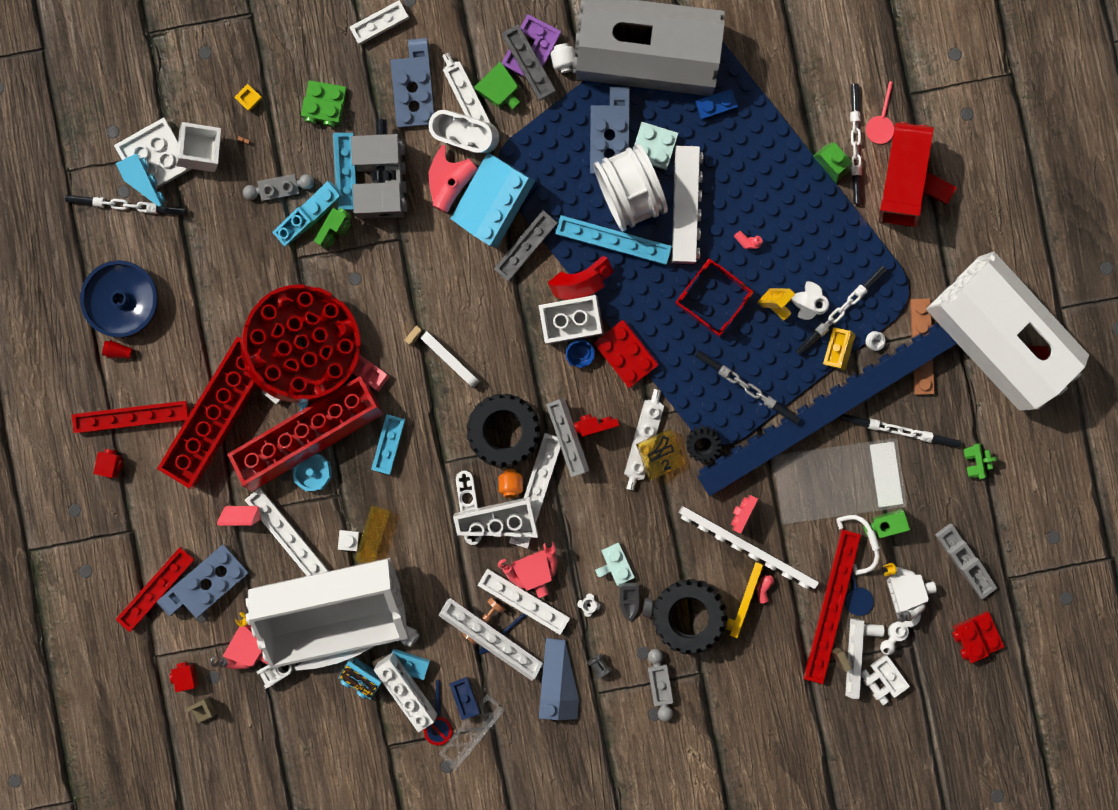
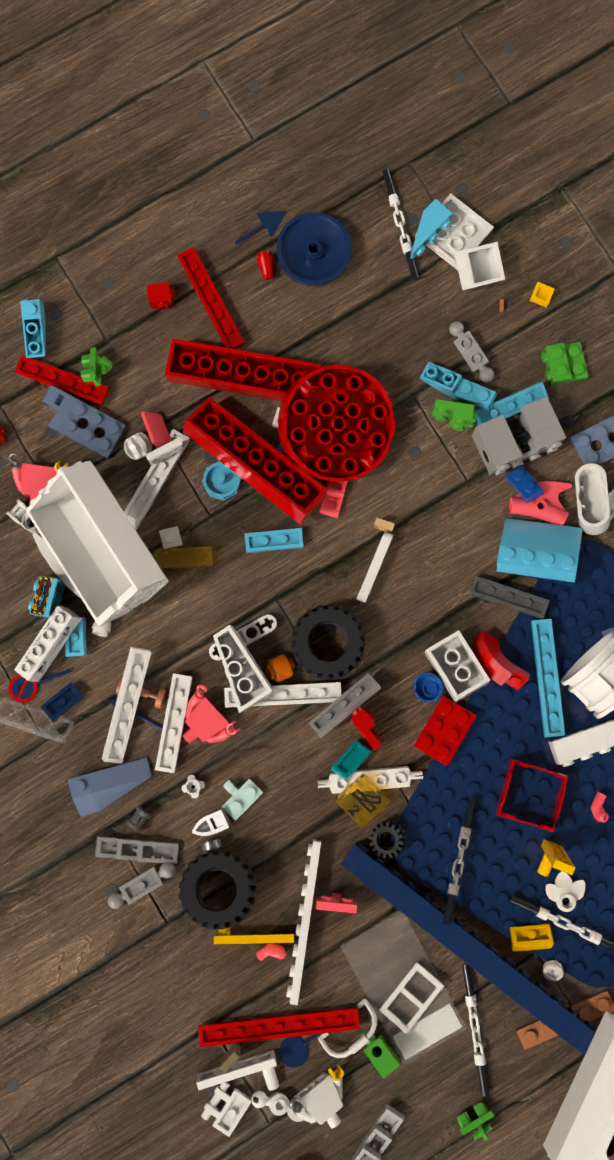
camera: 65 degrees right, 5 degrees down
(72, 330) = (269, 220): none -> dark blue piece
(93, 597) = (34, 328): none -> medium azure slope
(155, 549) = (98, 366): none -> bright green hips
(248, 539) = (137, 446): none -> white piece
(264, 515) = (165, 451): none -> white tile
(425, 188) = (524, 484): none -> blue plate
(620, 450) = (351, 760): none -> teal tile
(626, 678) = (136, 850): none -> light grey slope
(850, 448) = (422, 1006): none -> white window

